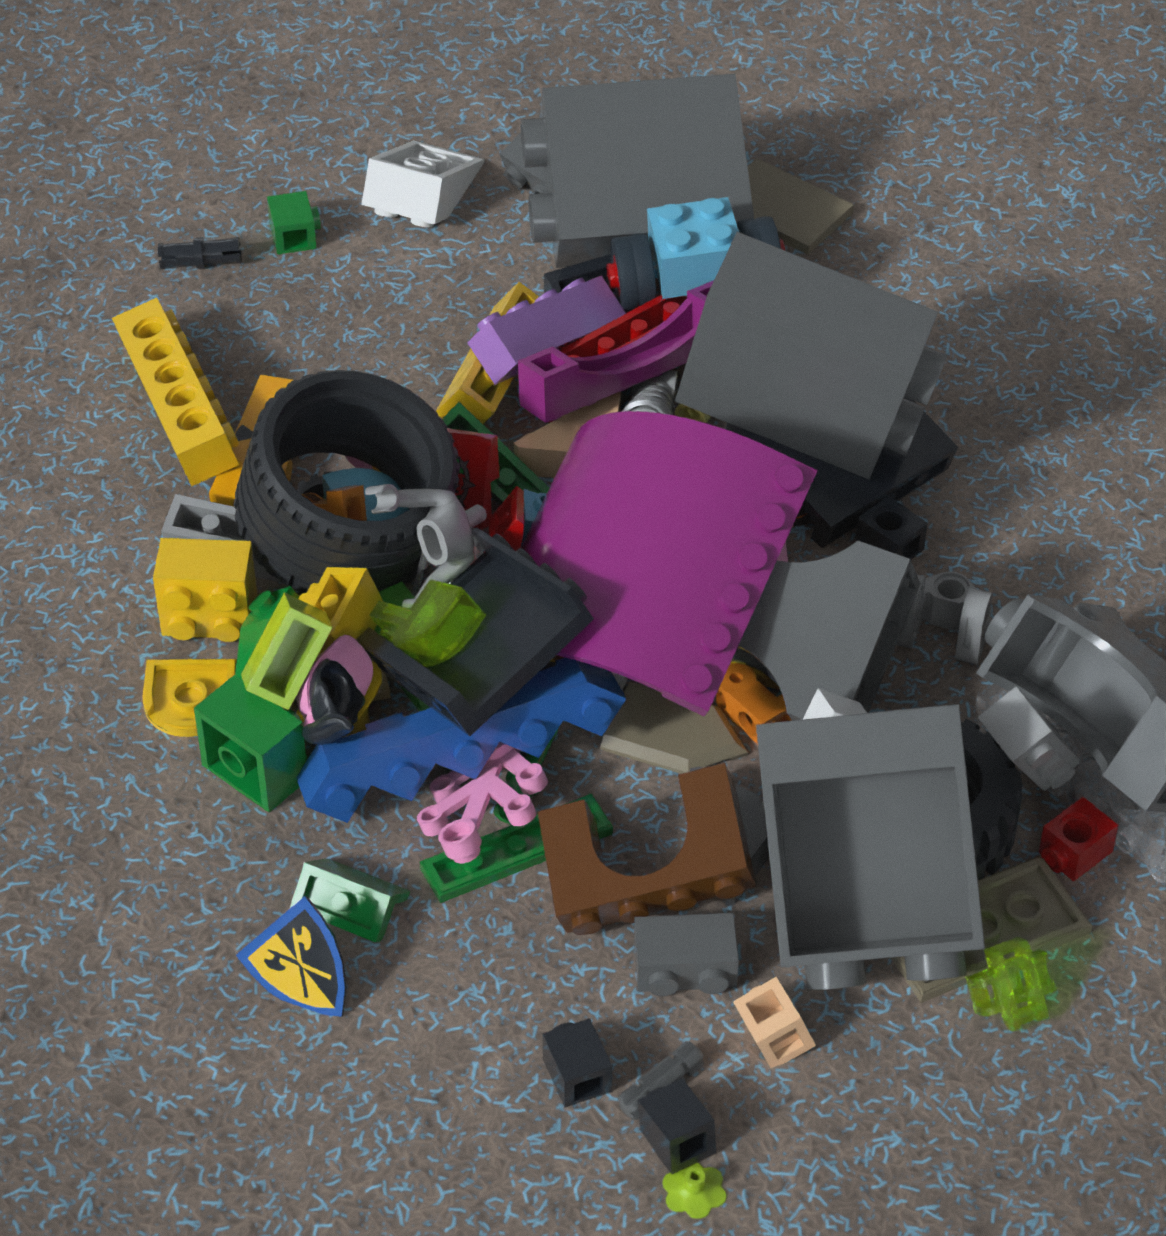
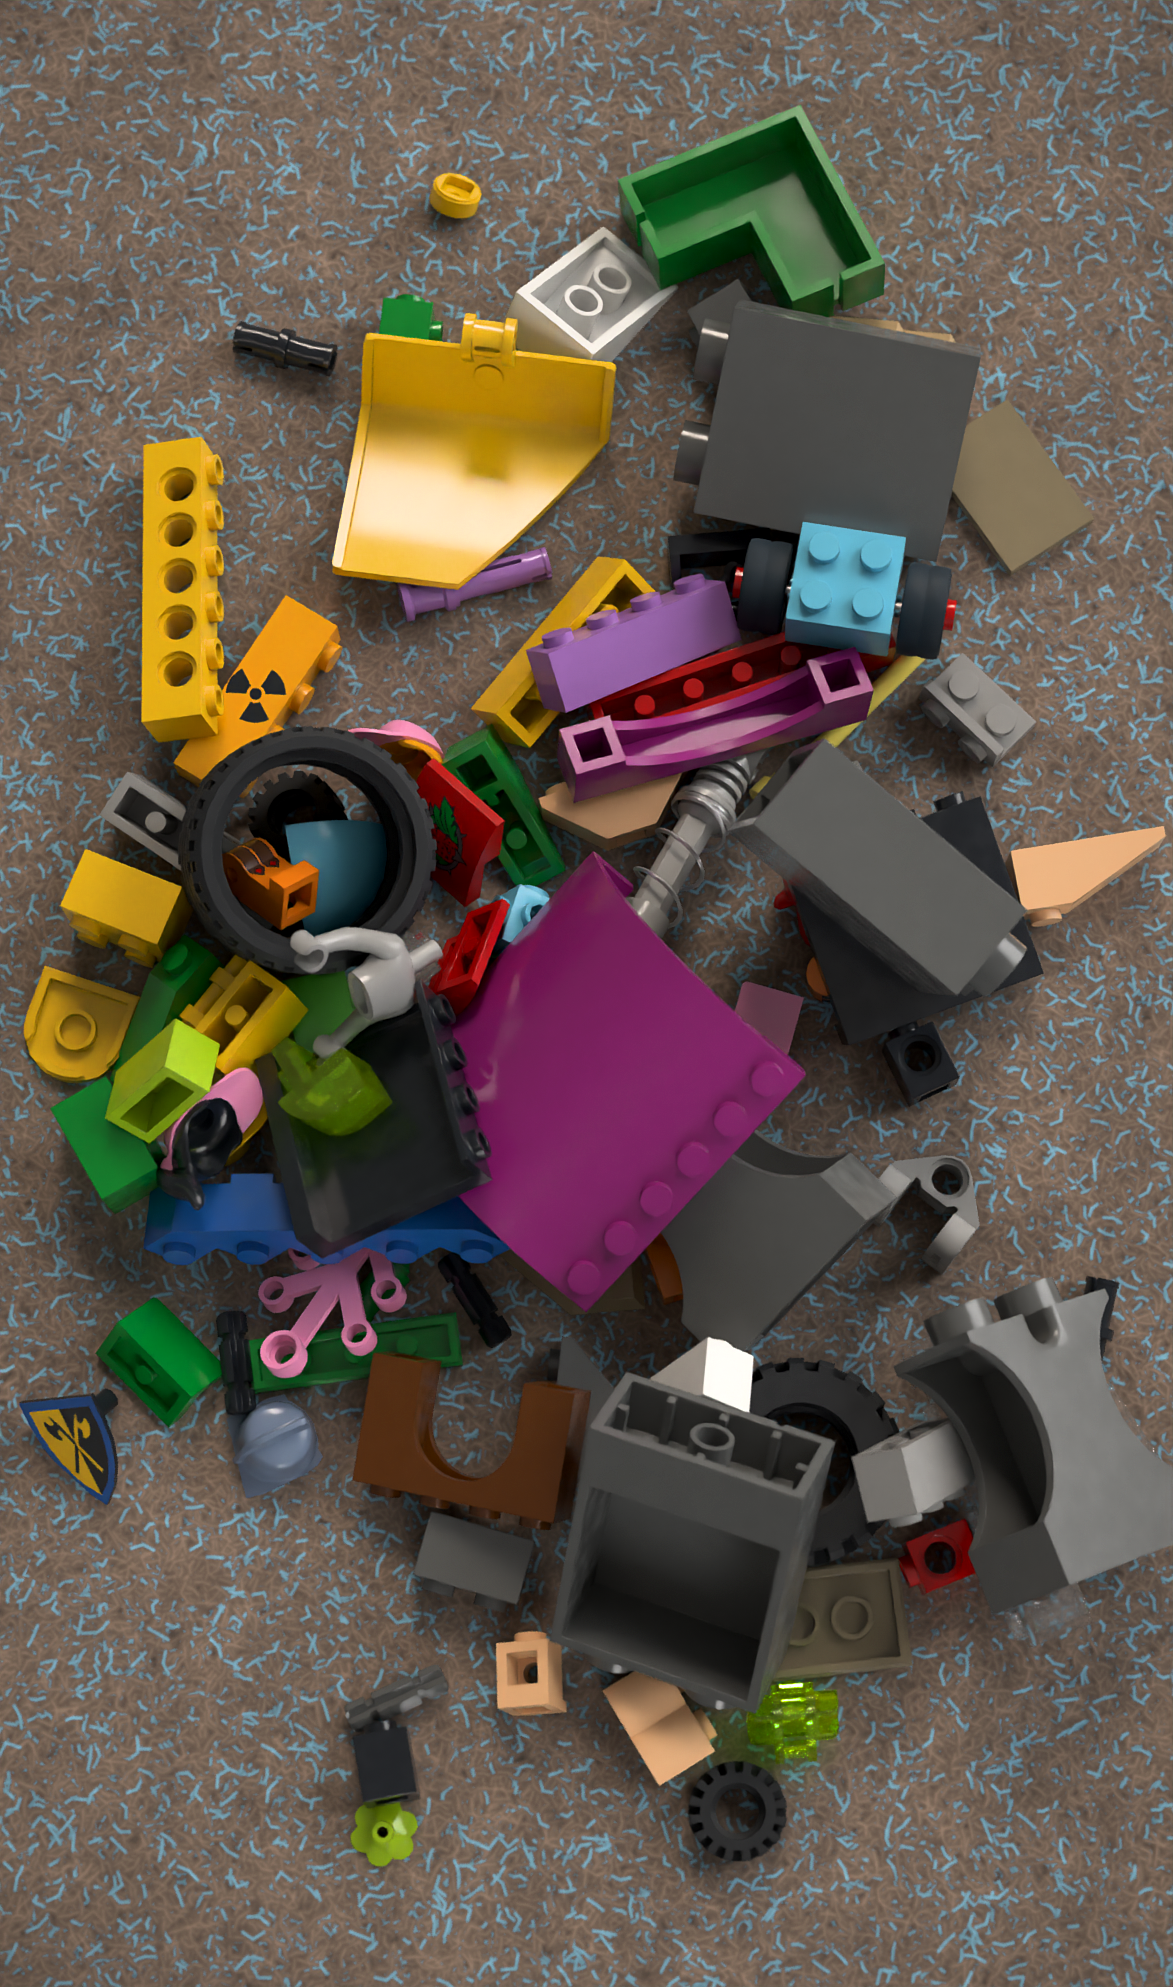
camera: 20 degrees right, 30 degrees up
(295, 146) = (455, 195): none -> yellow tile
(364, 261) = (463, 451): none -> yellow panel
(387, 353) = (496, 577): none -> medium lavender pin
(417, 878) = (236, 1363): none -> black axle
(473, 927) = (273, 1445): none -> sand blue piece
(492, 93) = (761, 195): none -> green piece
(577, 1062) = (315, 1653): black brick -> none
(603, 782) = (474, 1299): none -> black axle
(899, 1022) = (661, 1724): none -> light nougat brick
(963, 384) = (1065, 874): none -> light nougat slope
(994, 1094) = (770, 1819): none -> black tyre

